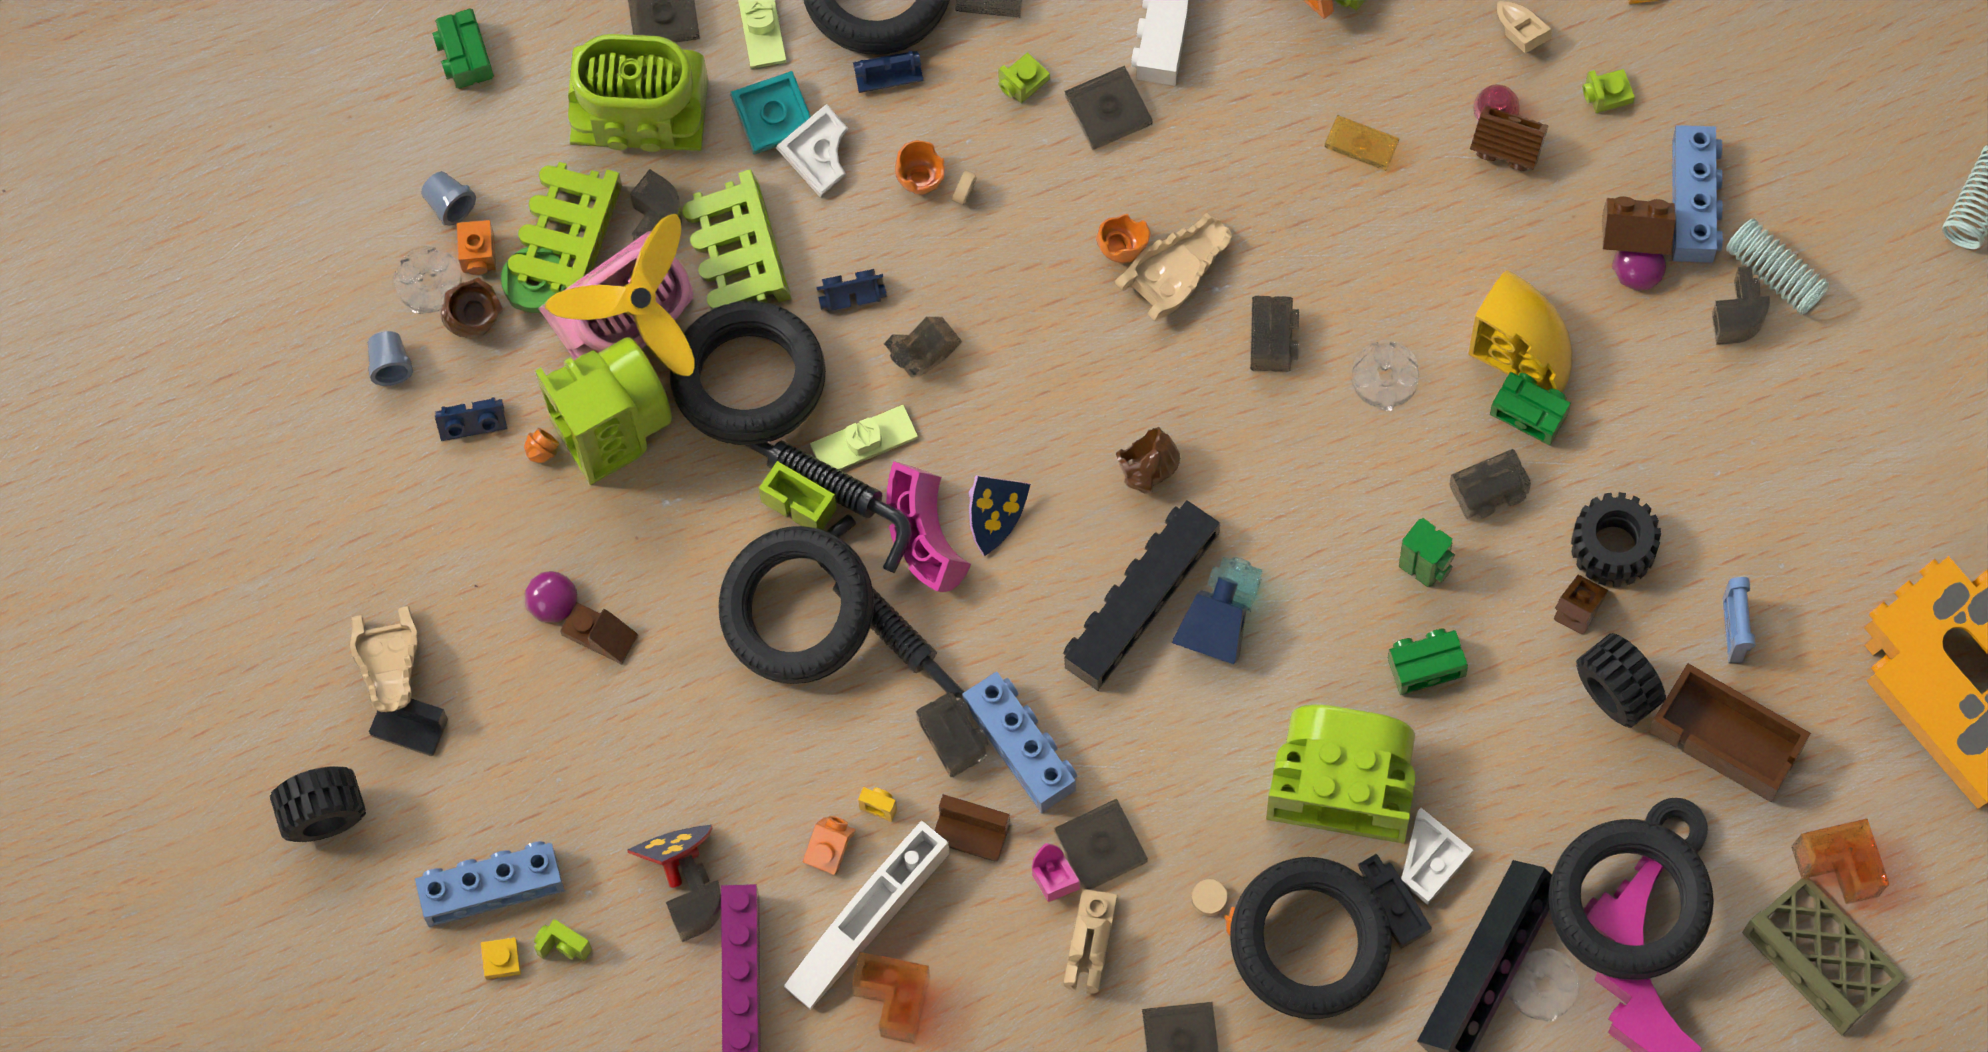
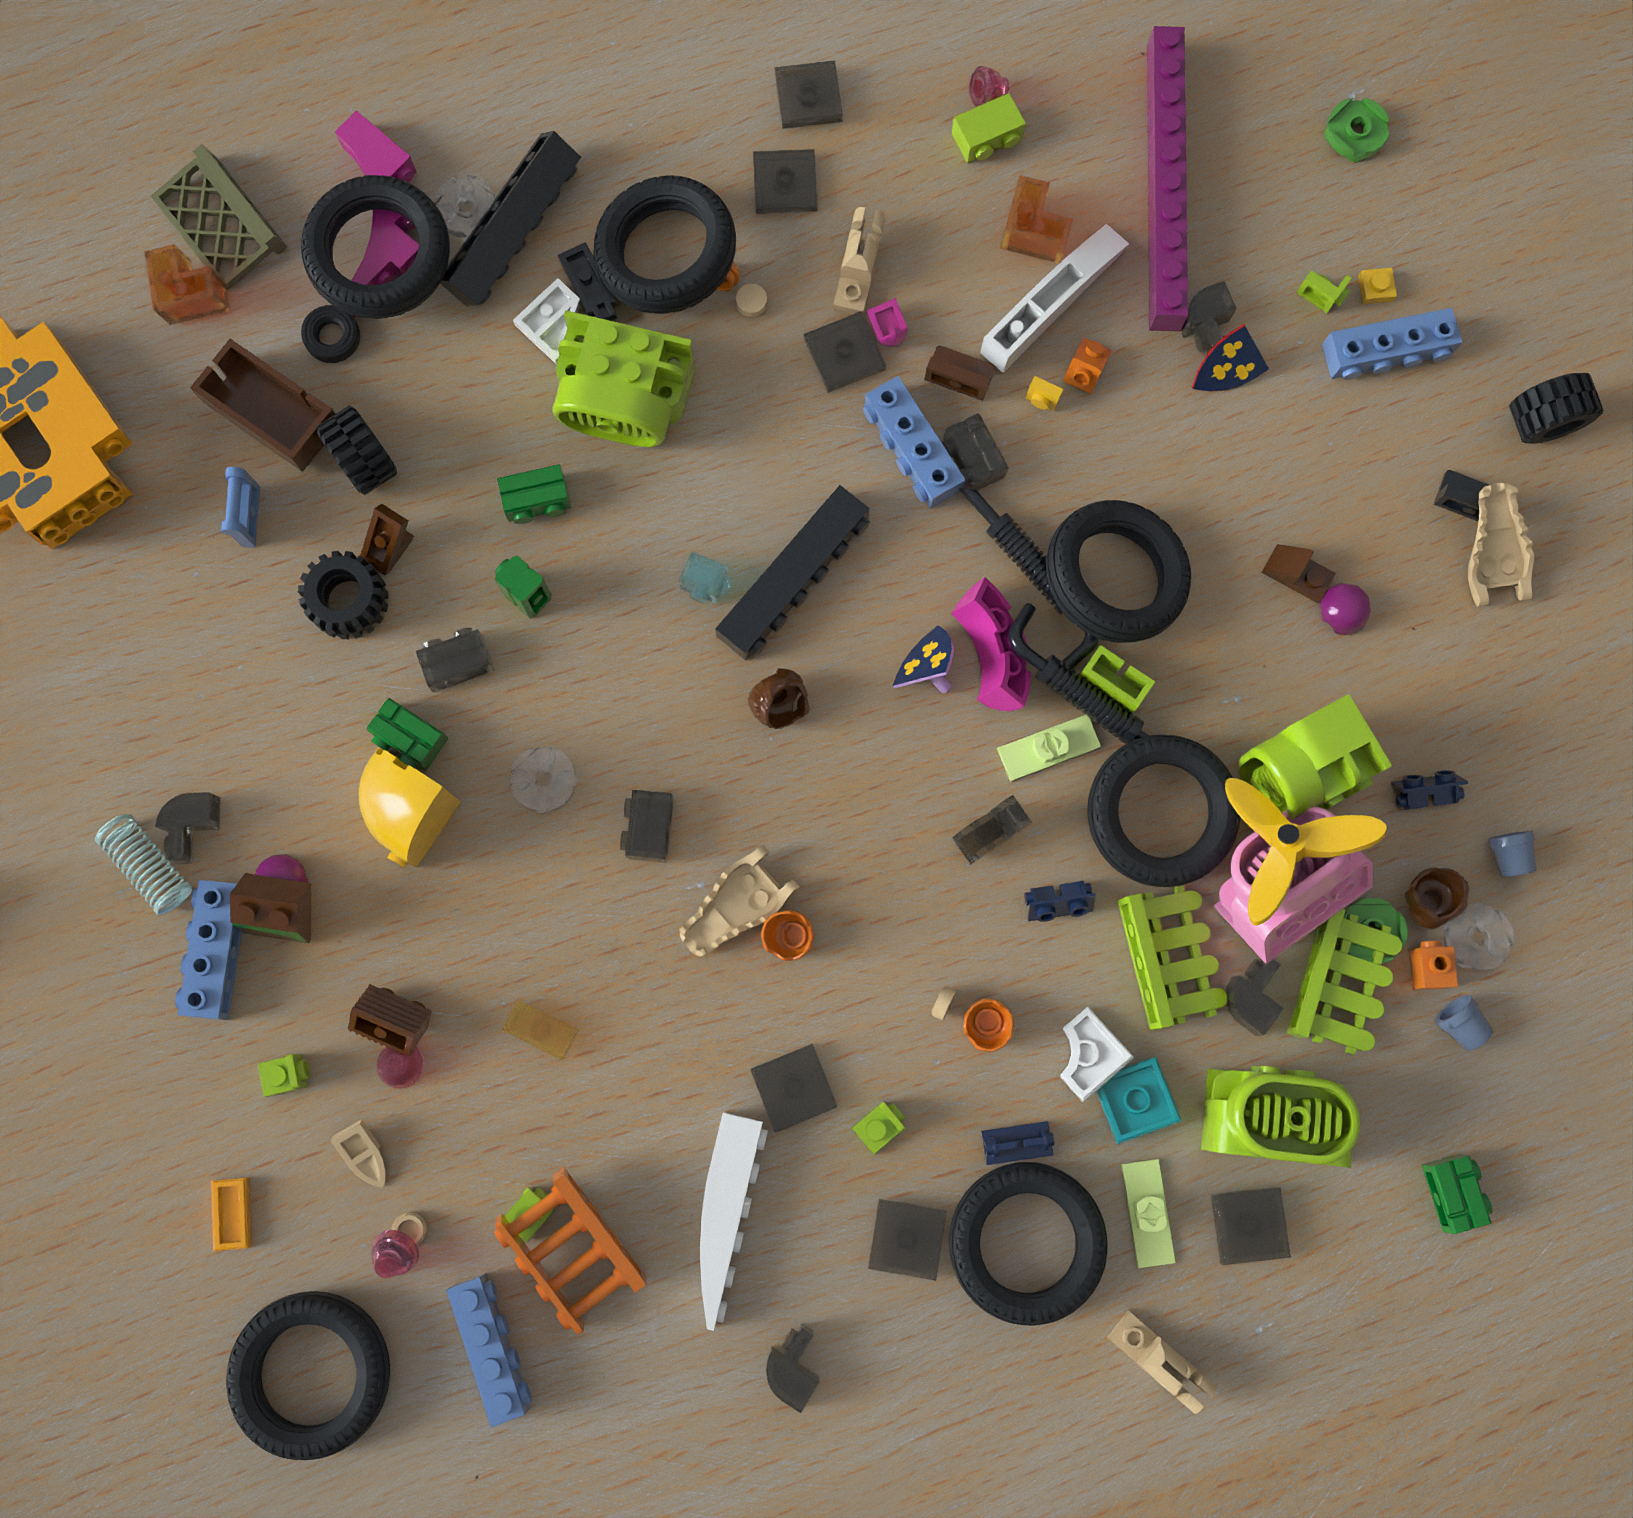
camera: 175 degrees right, 10 degrees up
(1214, 623) = (729, 534): dark blue torso -> none

